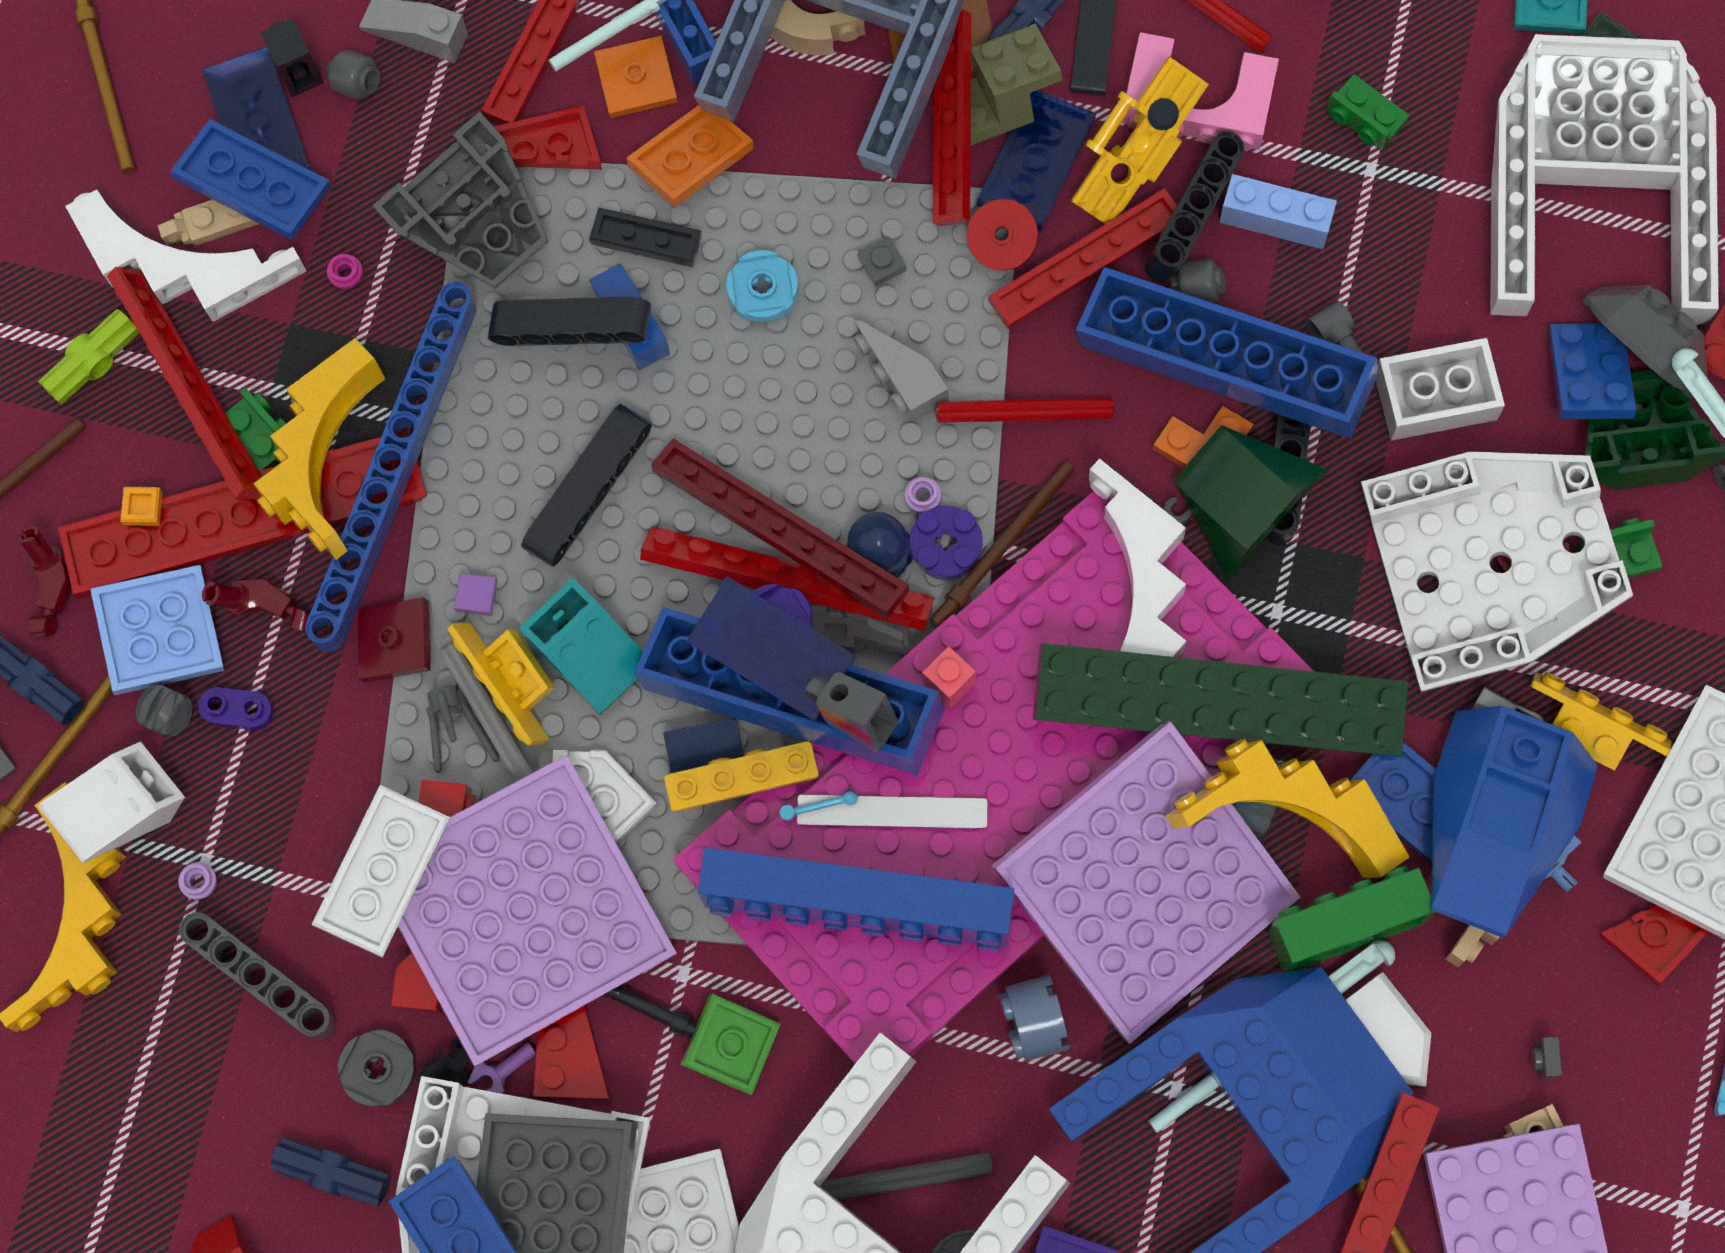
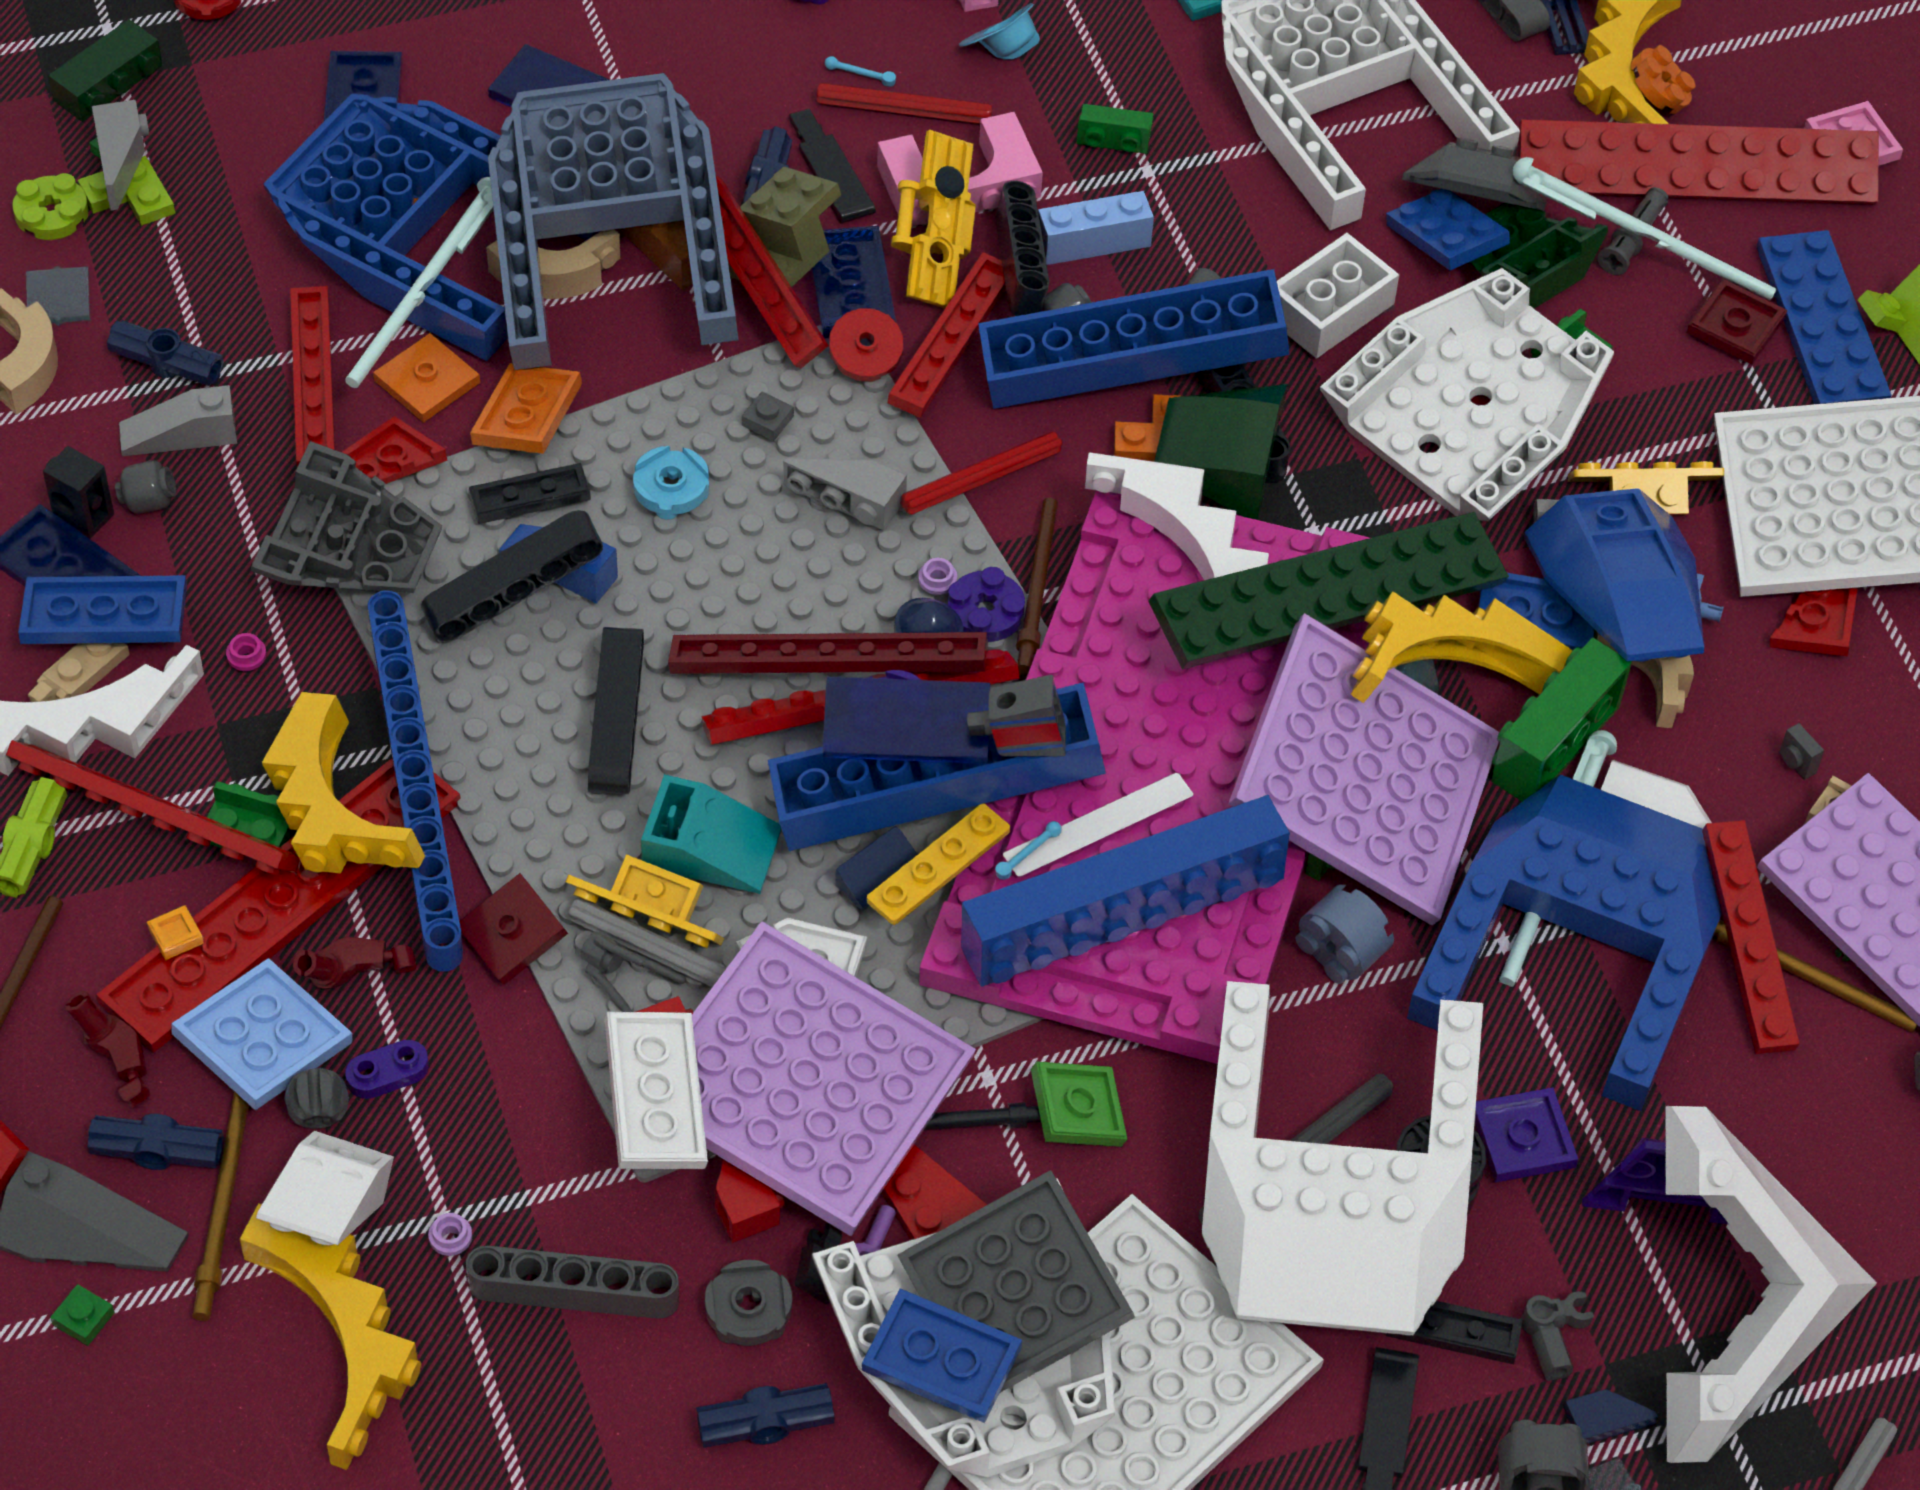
camera: 40 degrees left, 20 degrees down
(475, 594) = (568, 852): medium lavender tile -> none
(949, 676) = (1079, 669): coral brick -> none

